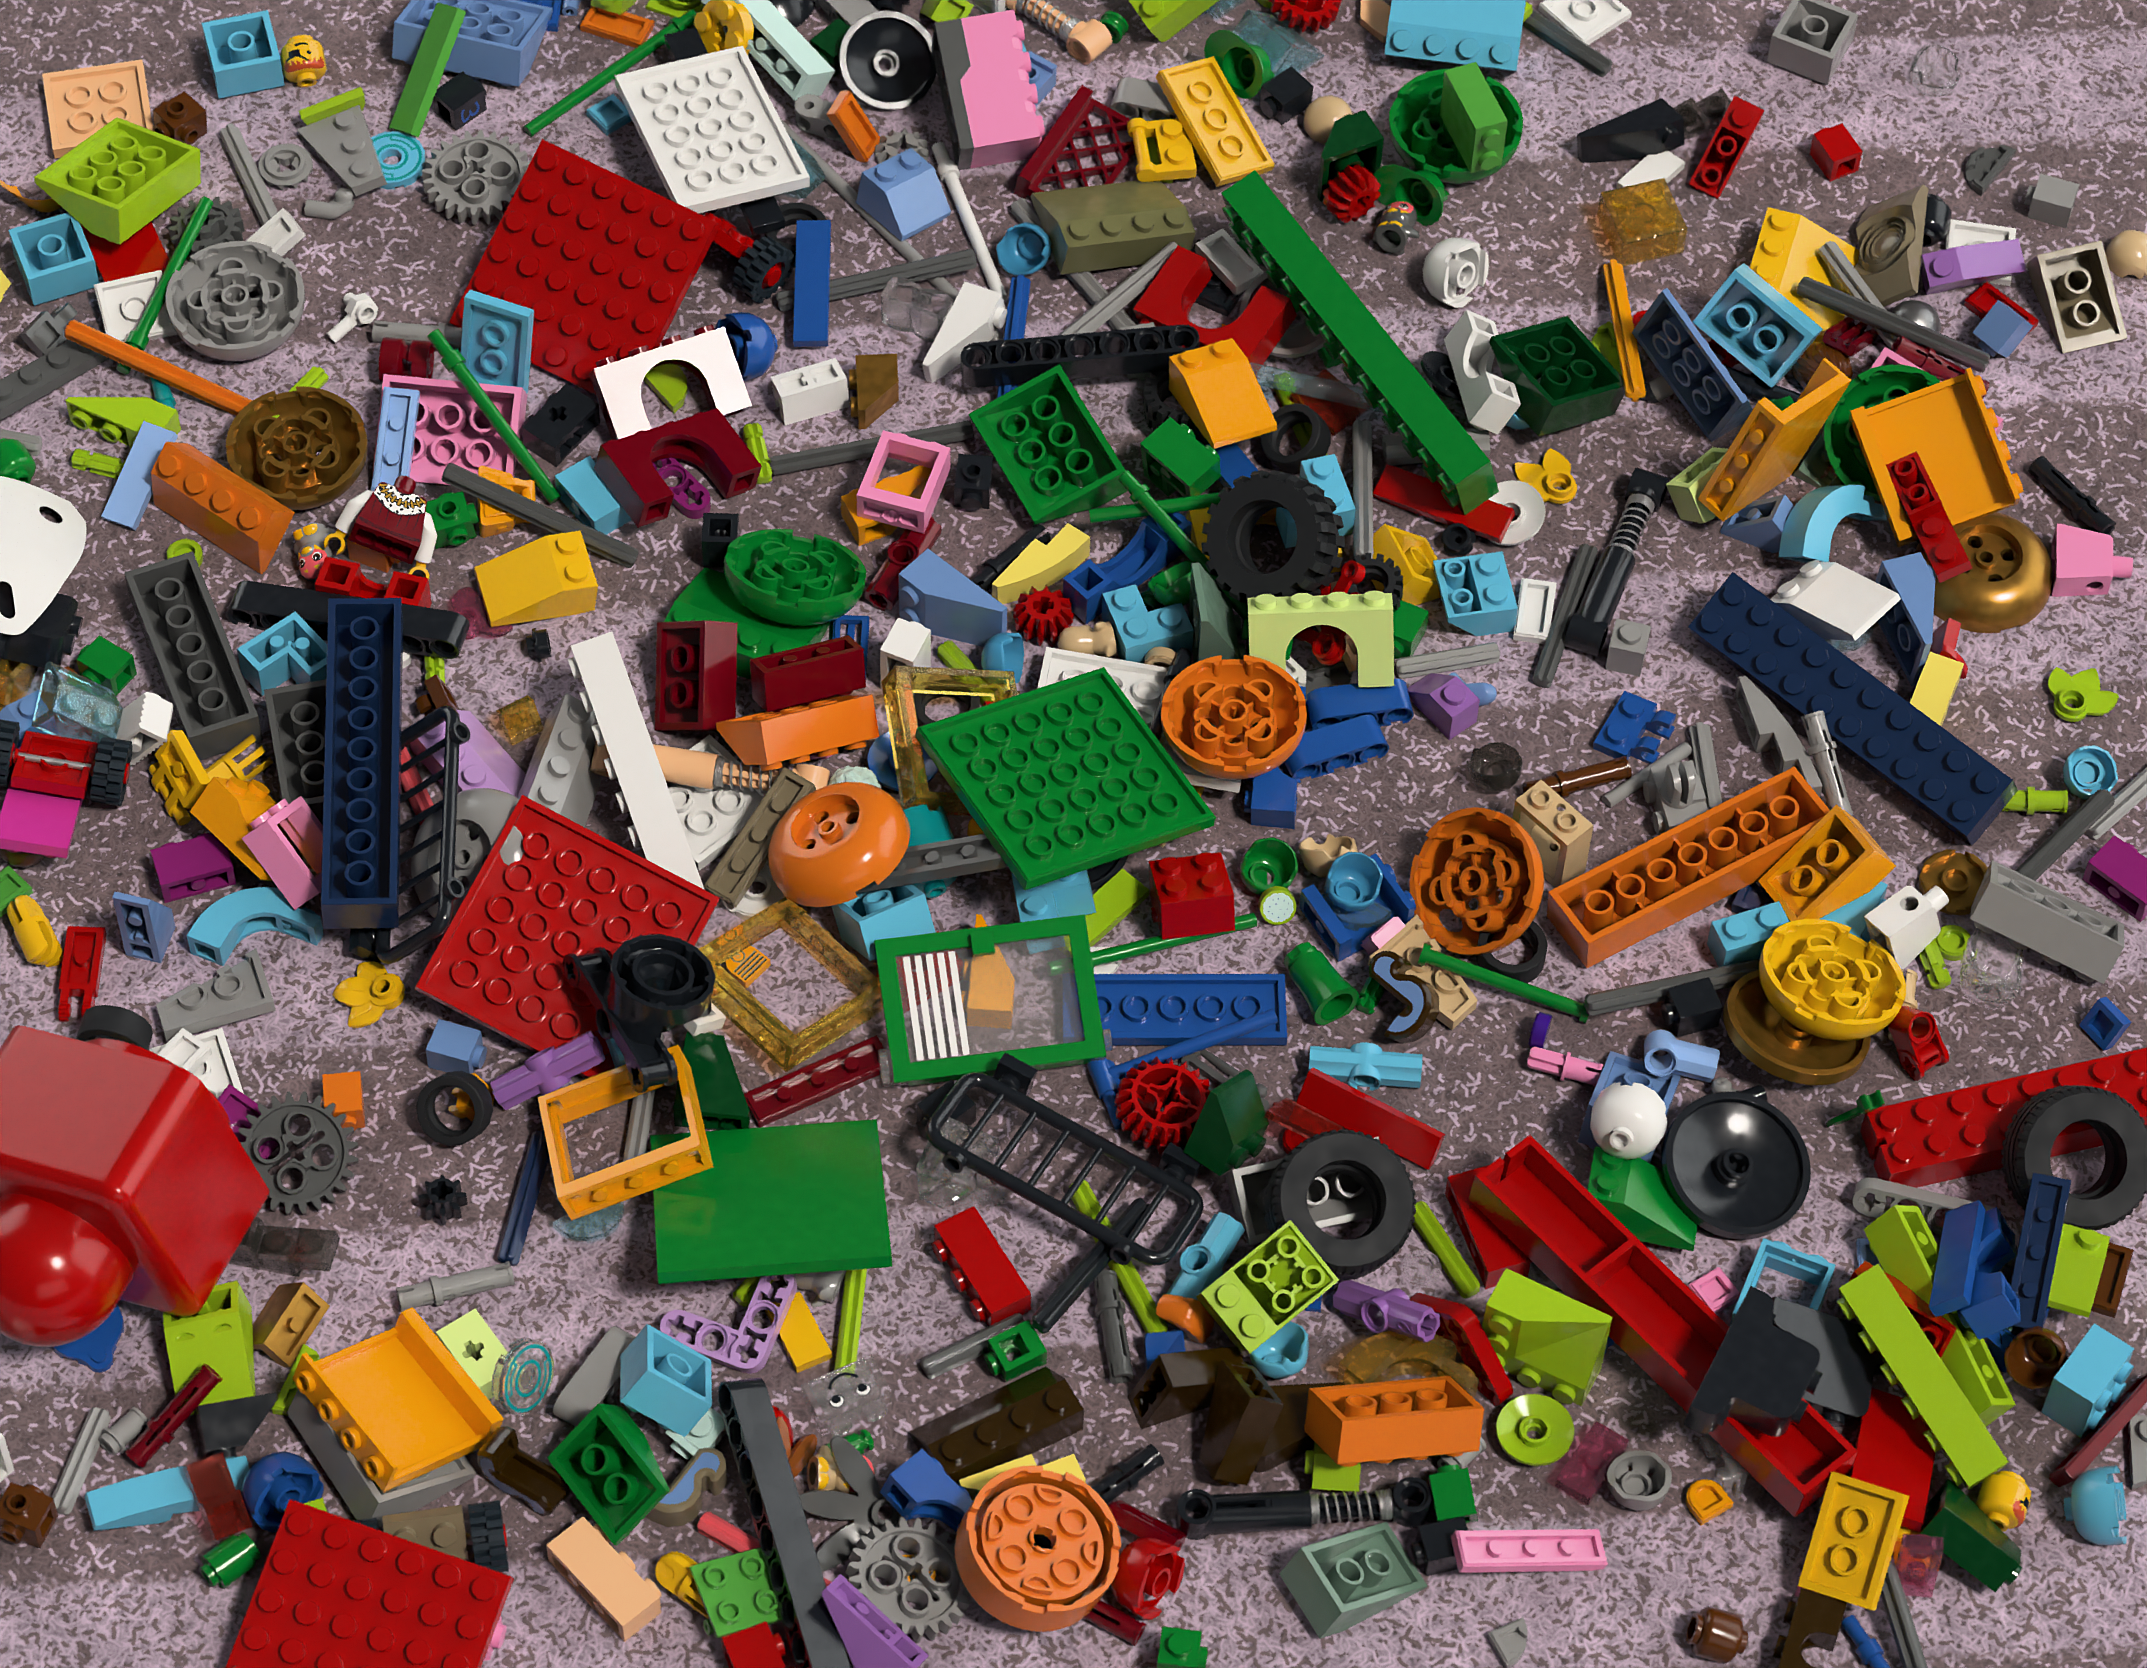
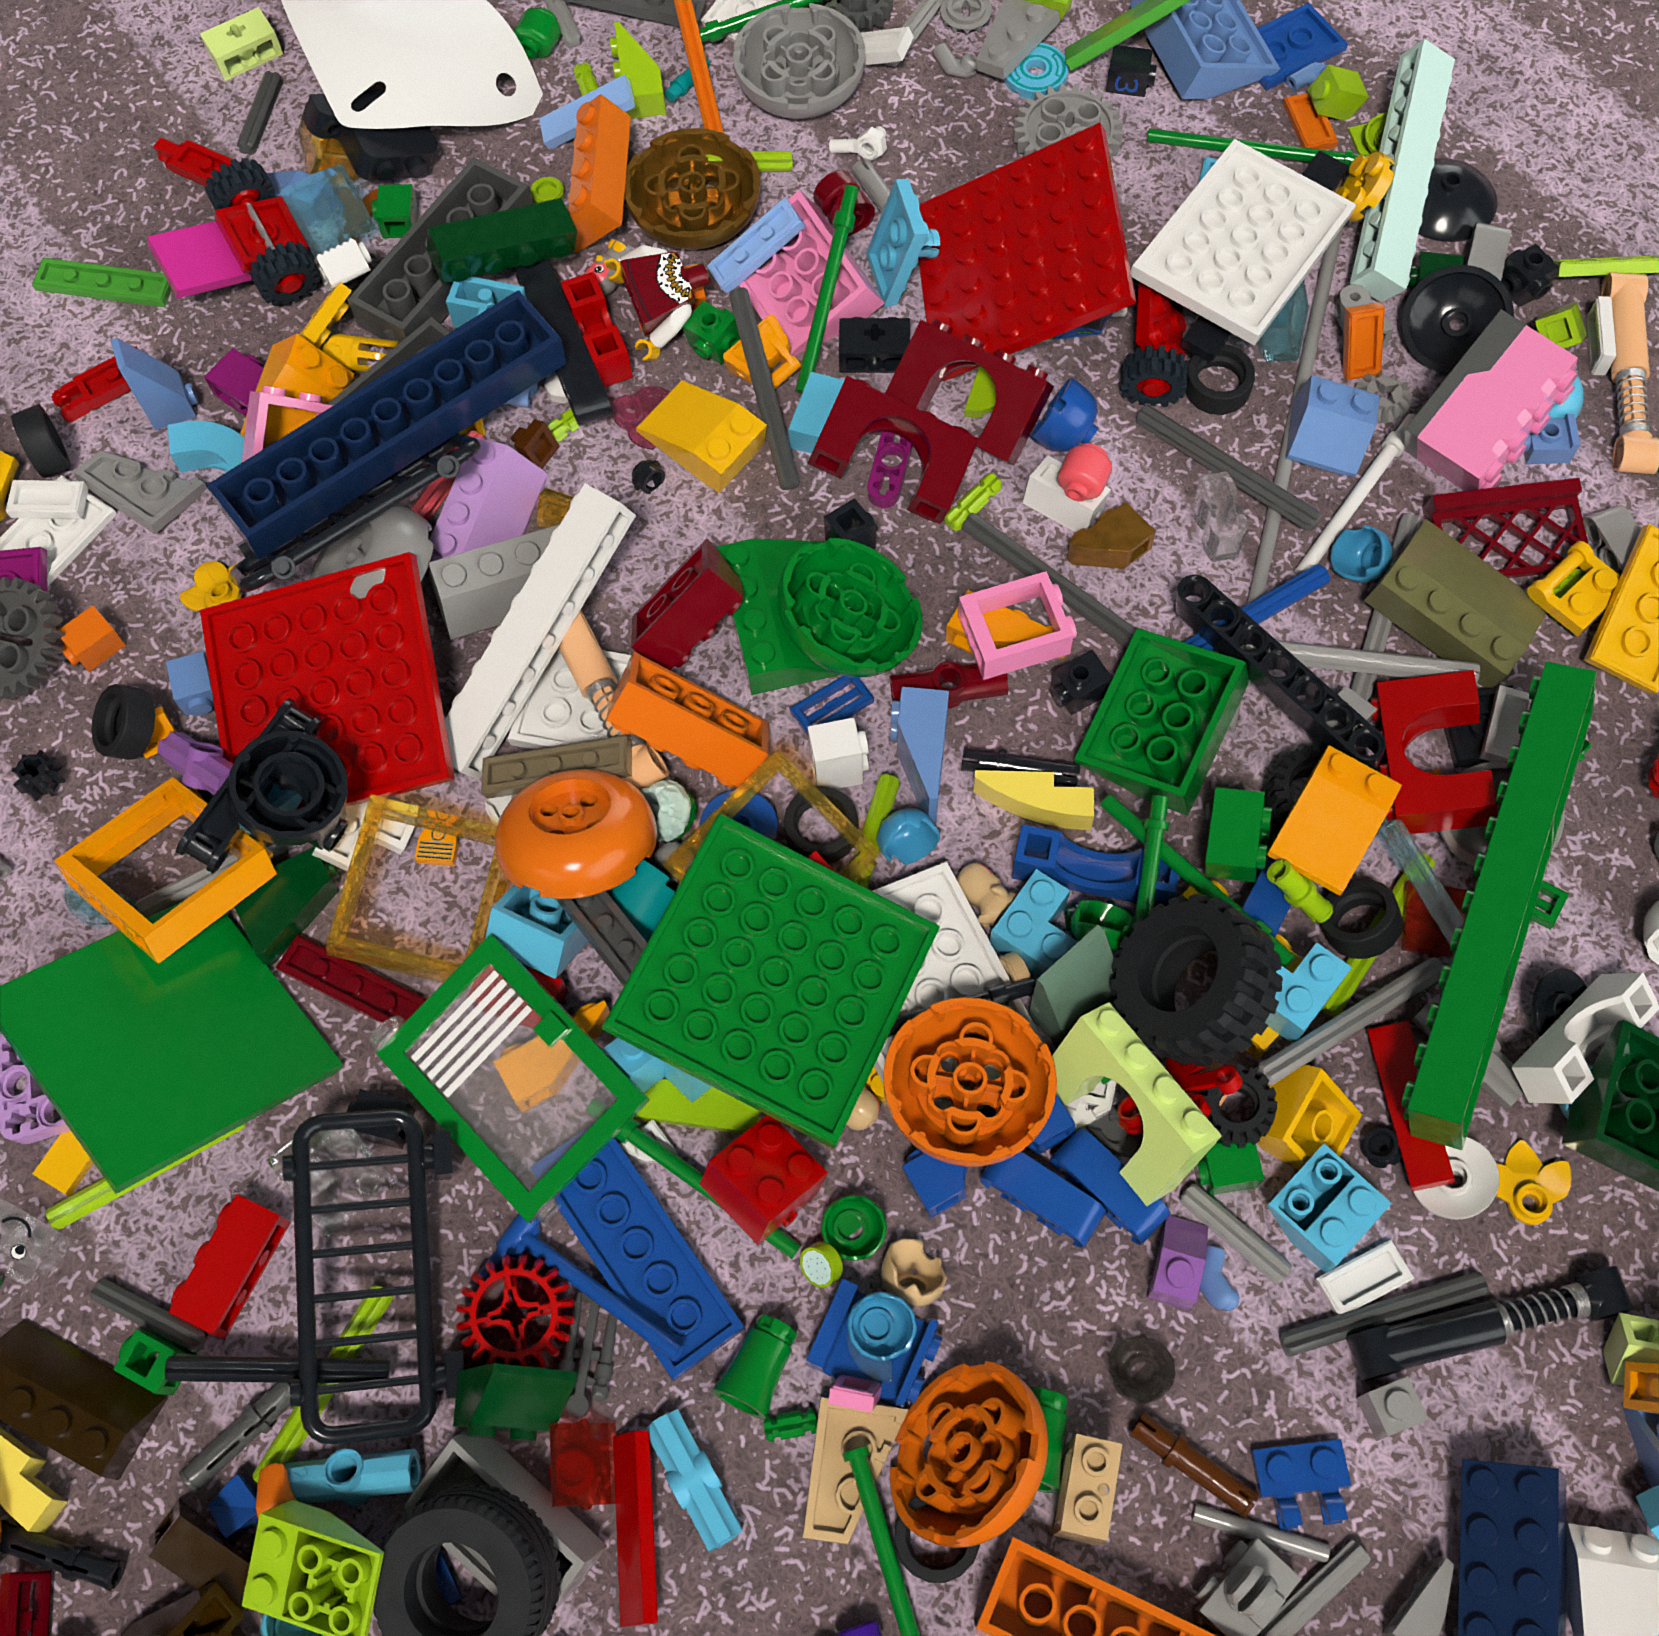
camera: 60 degrees right, 10 degrees up
(34, 932) = (122, 321): yellow arm -> none
(243, 596) = (501, 240): none -> dark green brick
(524, 1200) = (53, 847): dark blue axle -> none
(807, 673) = (748, 688): dark red brick -> none
(812, 283) = (1173, 420): blue tile -> none
(815, 359) = (1084, 472): none -> coral head
(971, 320) = (1234, 566): white slope -> none
(1042, 614) = (981, 846): red gear -> none
(1252, 452) = (1299, 891): none -> lime pin
(1417, 994) = (797, 1470): dark brown animal -> none

